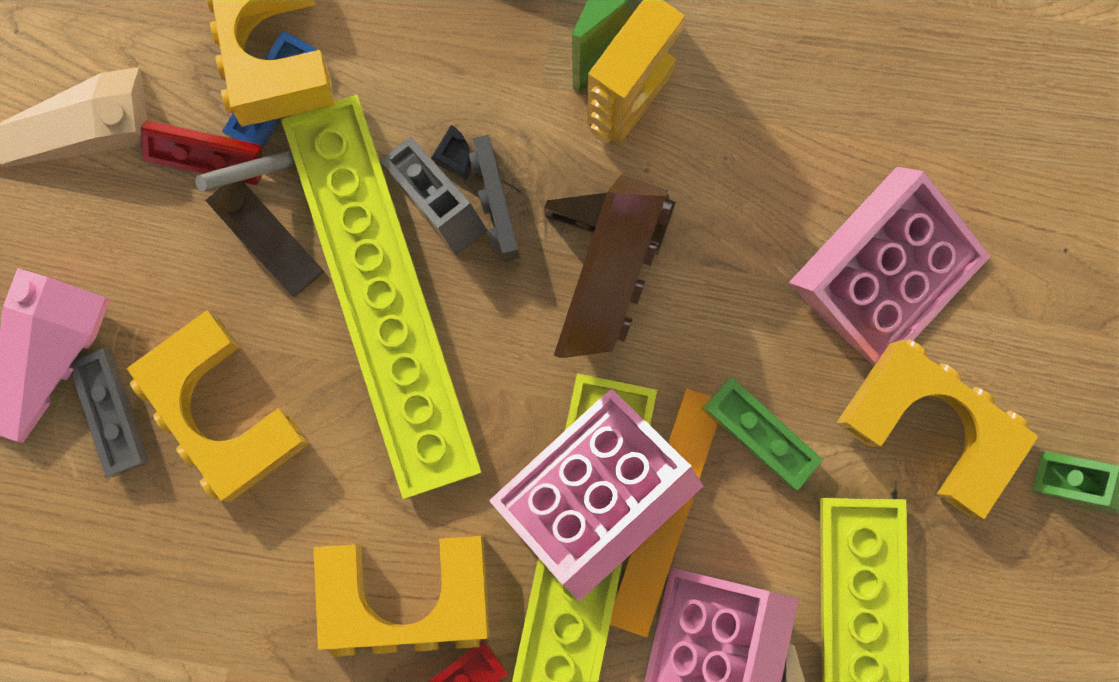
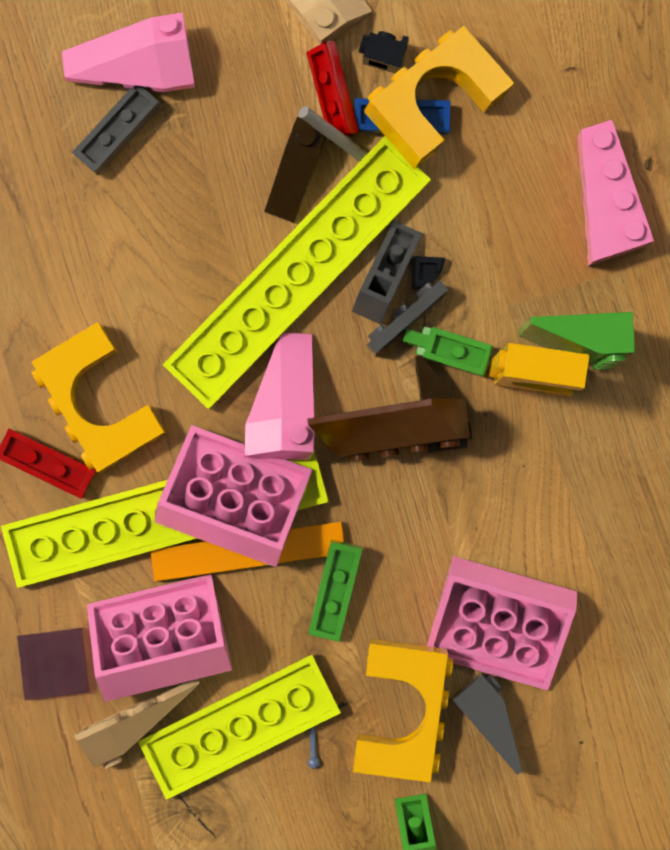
camera: 60 degrees right, 5 degrees up
(168, 379) = (158, 157): yellow arch -> none
(188, 74) = (383, 51): none -> black brick
(521, 381) = (284, 403): none -> bright pink wedge
(555, 169) = (450, 349): none -> bright green hinge
(944, 560) = (313, 762): none -> sand blue hinge
(988, 332) = (488, 713): none -> dark grey slope

